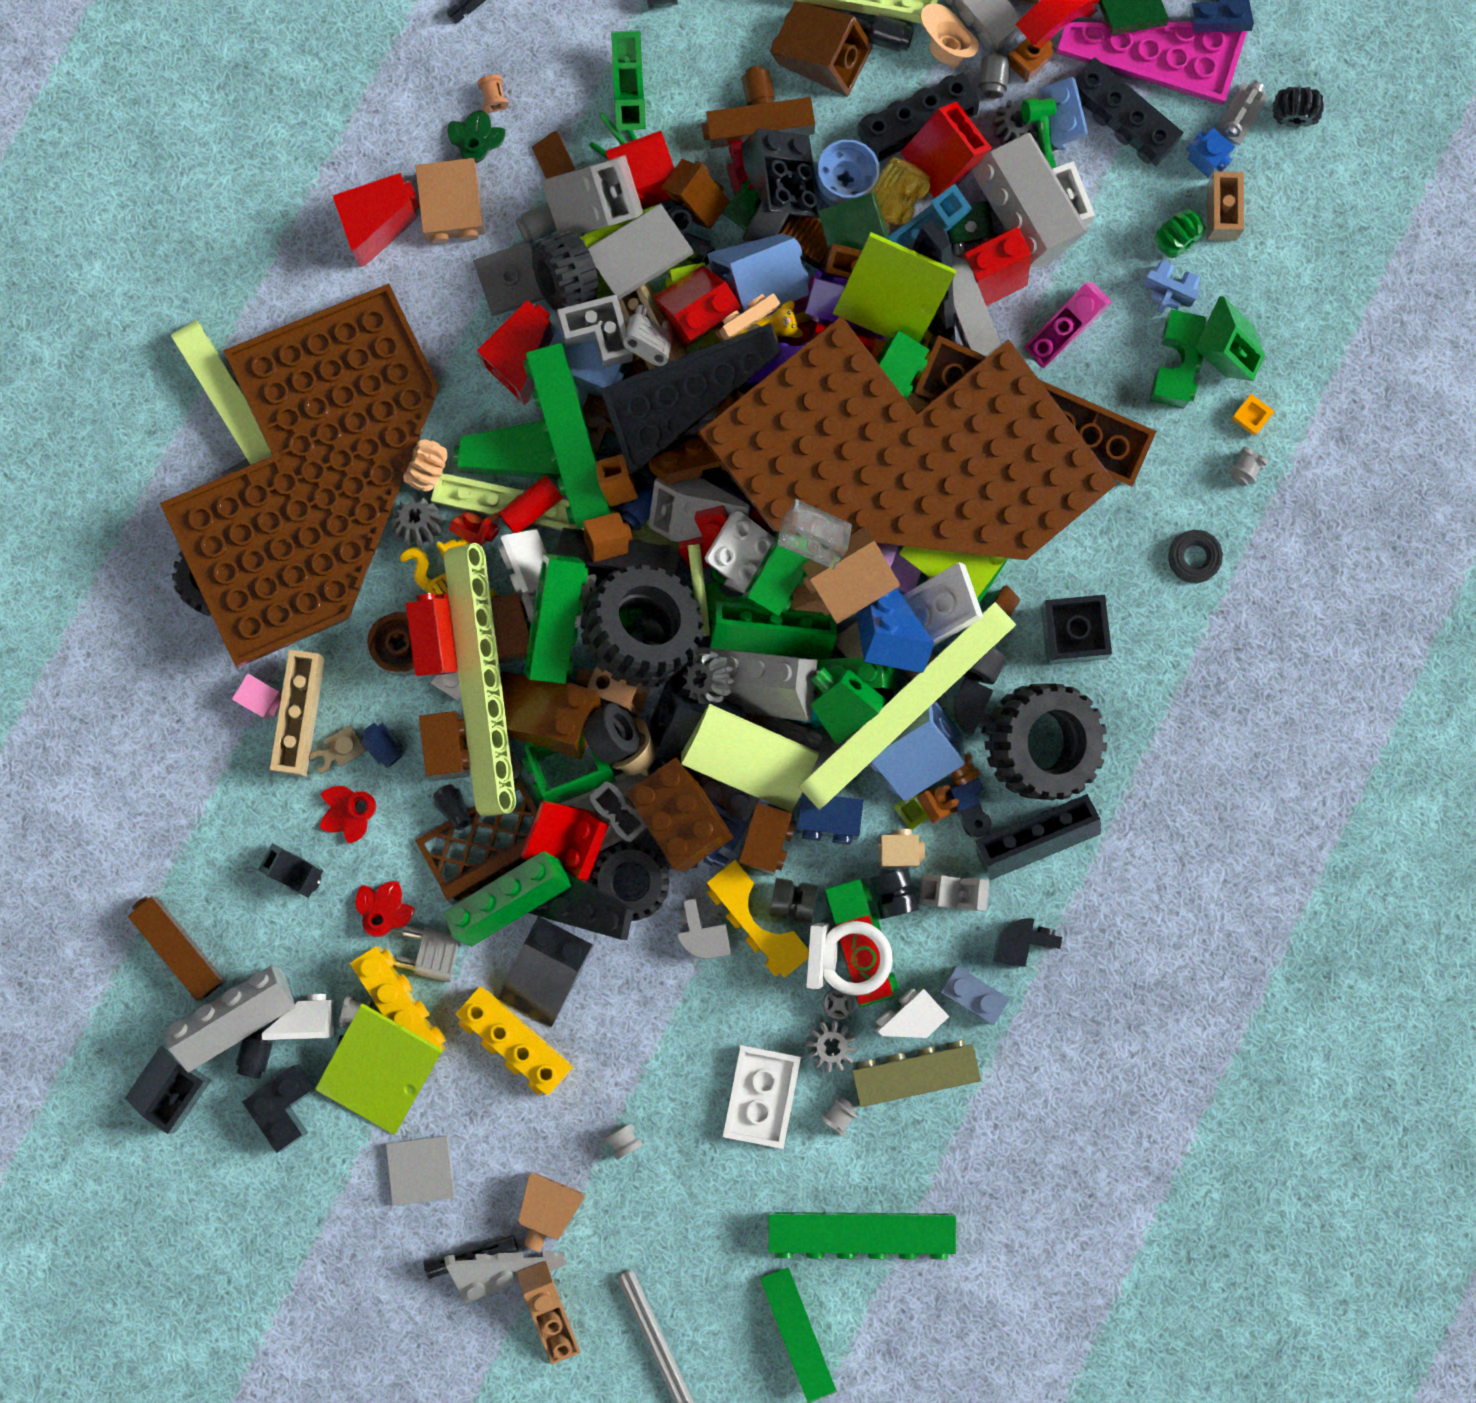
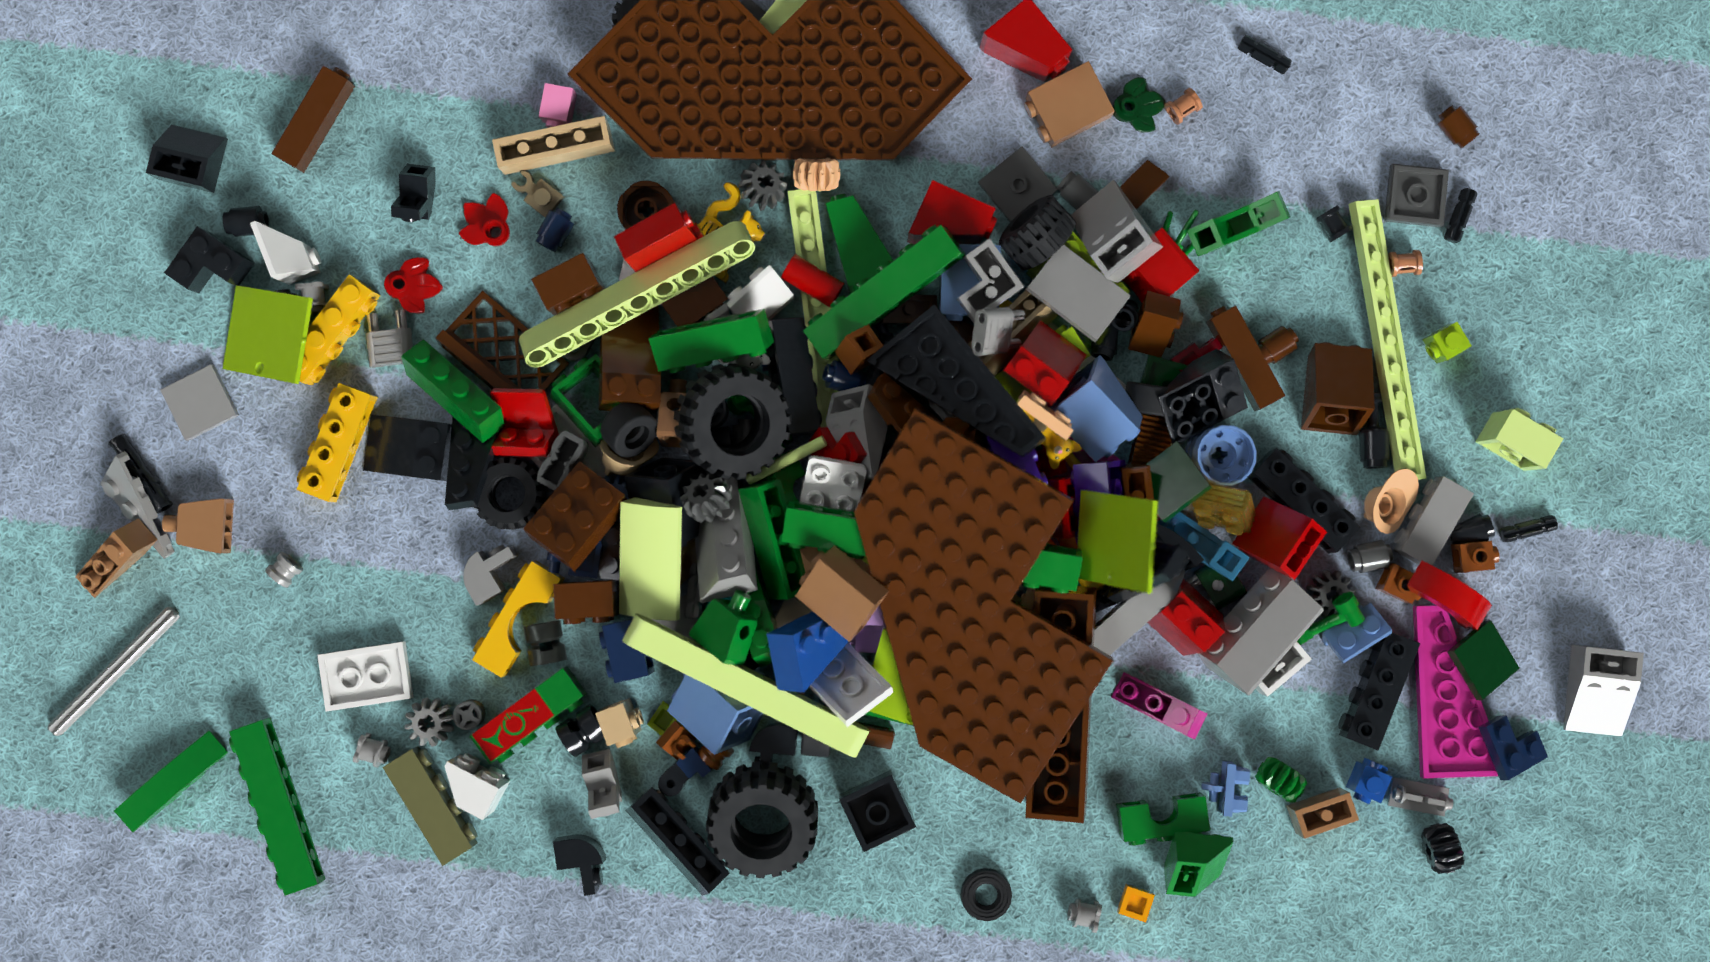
camera: 70 degrees right, 5 degrees up
(230, 1018) = (263, 189): light grey slope -> none
(452, 806) = (523, 310): black cone -> none
(473, 529) = (775, 239): red bracket -> none
(607, 536) = (805, 360): dark orange brick -> none
(814, 534) = (859, 549): clear brick -> none
(824, 957) = (502, 688): white tile -> none
(974, 995) = (517, 832): sand blue brick -> none

